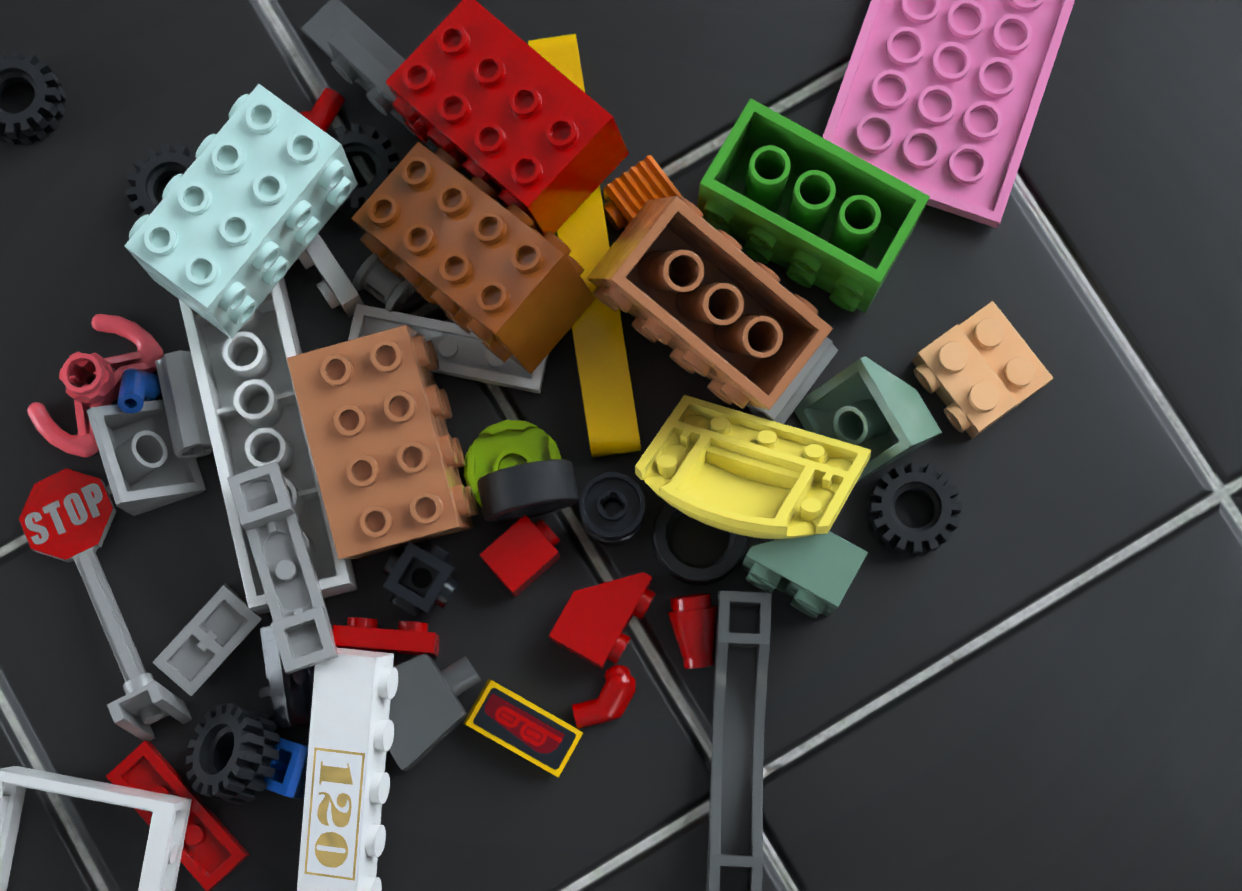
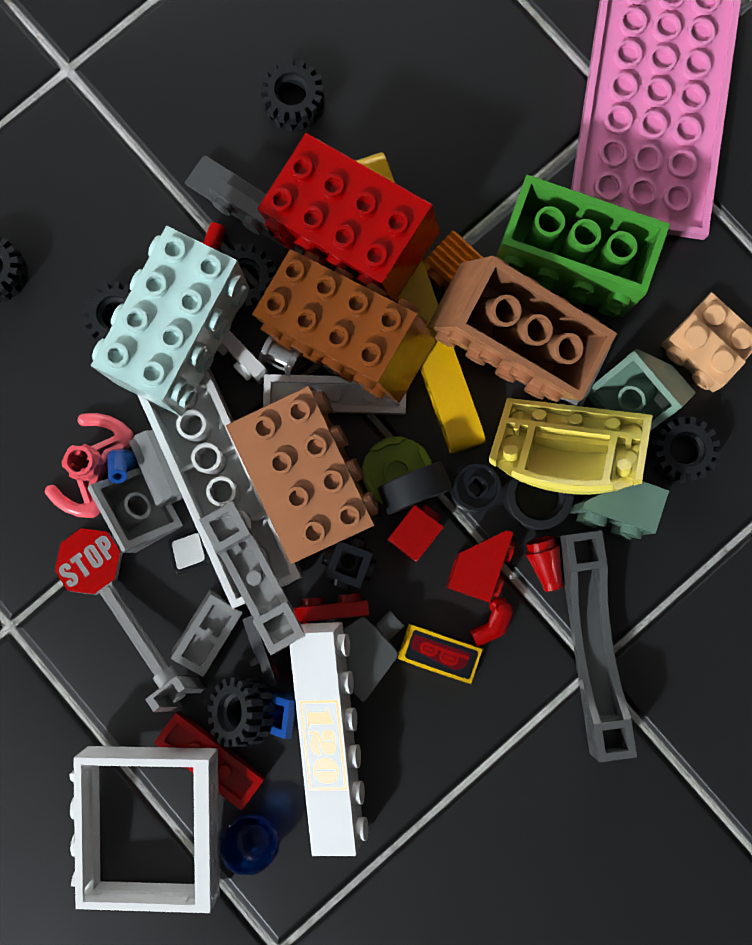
camera: 10 degrees left, 5 degrees up
(205, 528) = (188, 552): none -> white slope

